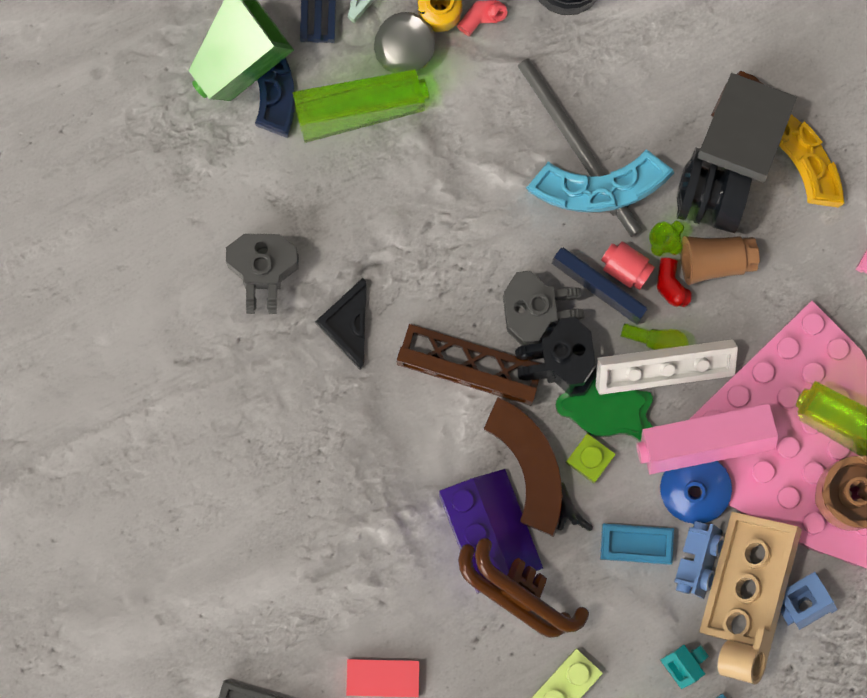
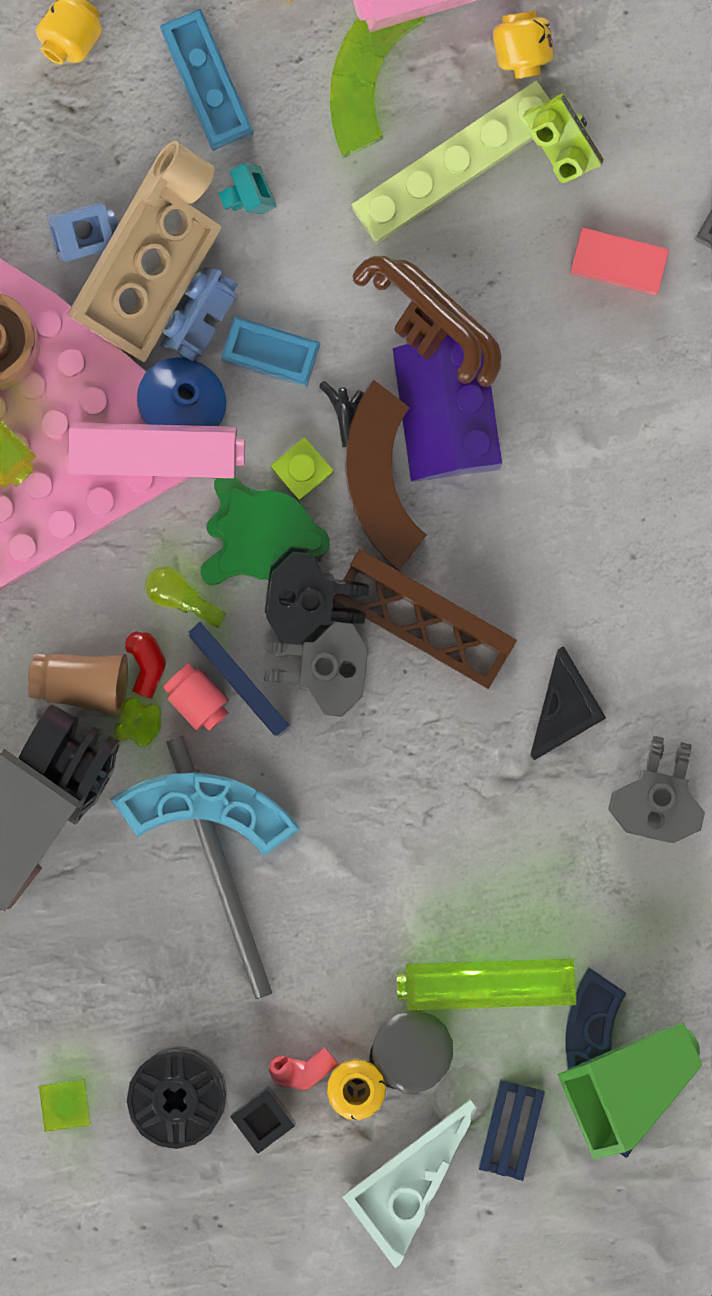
camera: 160 degrees left, 5 degrees up
(666, 366) = (181, 556): white plate -> none

